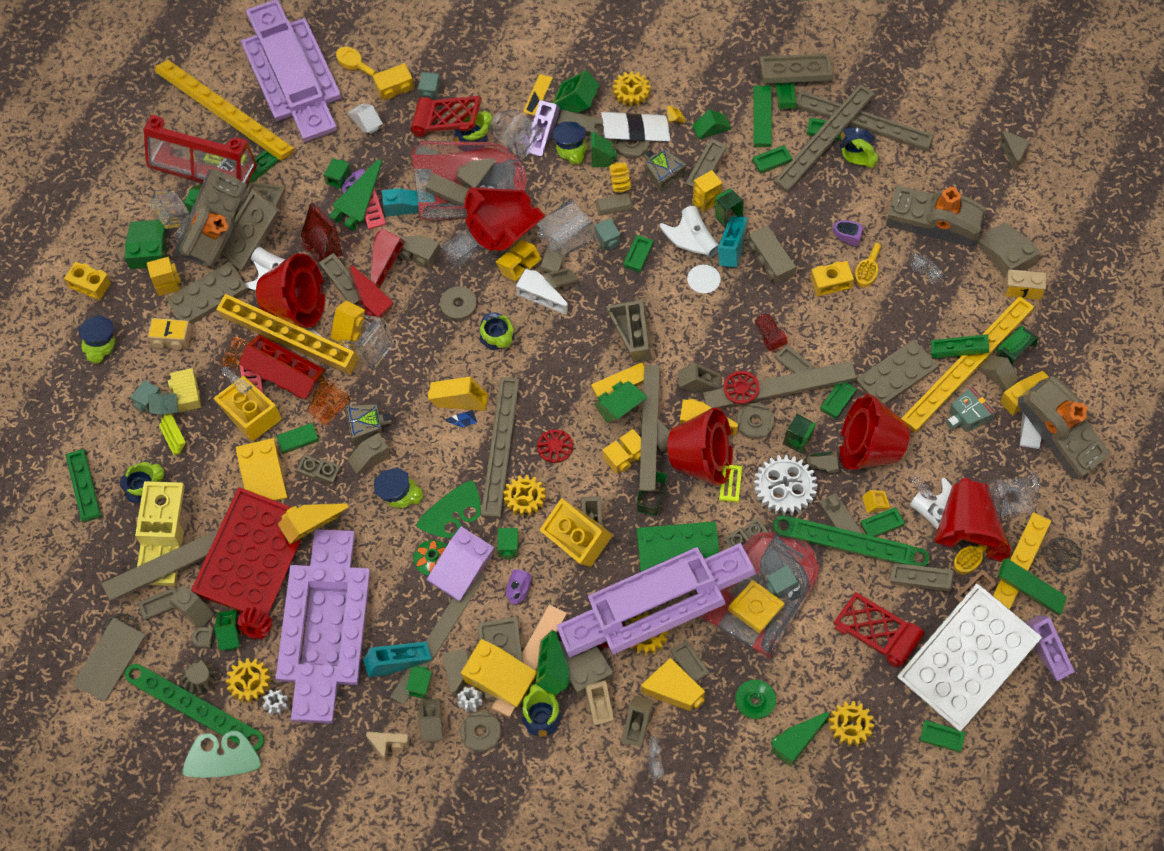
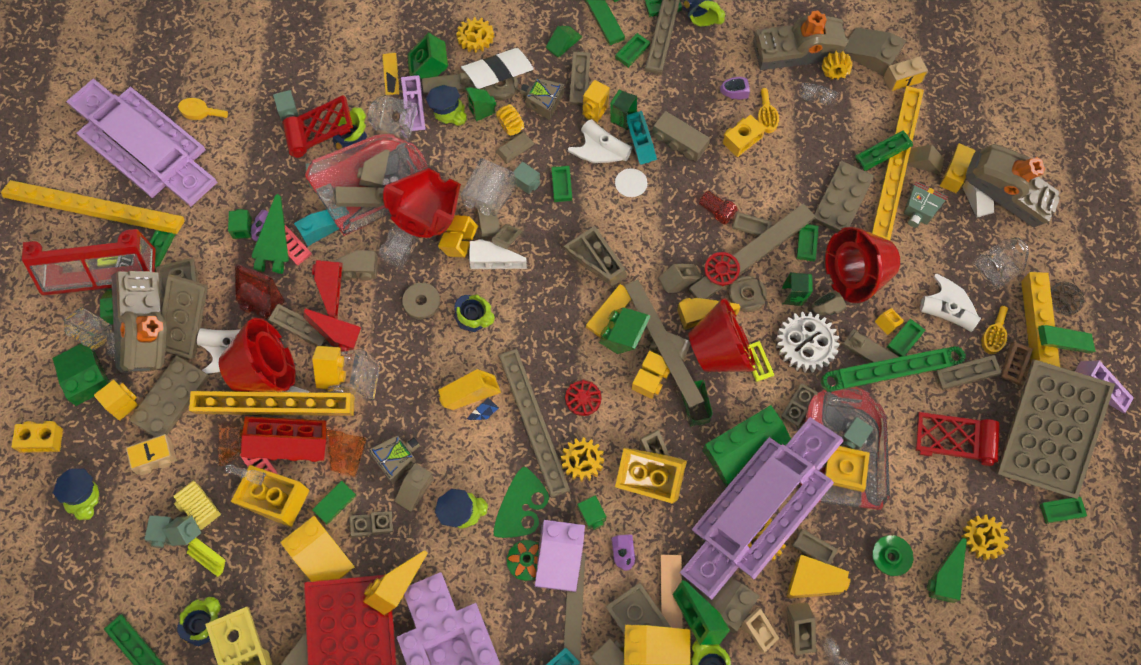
camera: 30 degrees left, 5 degrees up
(365, 118) = (239, 159): white slope -> none
(393, 81) = (249, 114): yellow brick -> none
(675, 115) = (526, 44): yellow slope -> none
(922, 487) = (923, 290): clear piece -> none
(959, 249) = (837, 65): none -> yellow gear
(974, 518) = (984, 301): red cone -> none
(1016, 344) = (929, 129): piece -> none

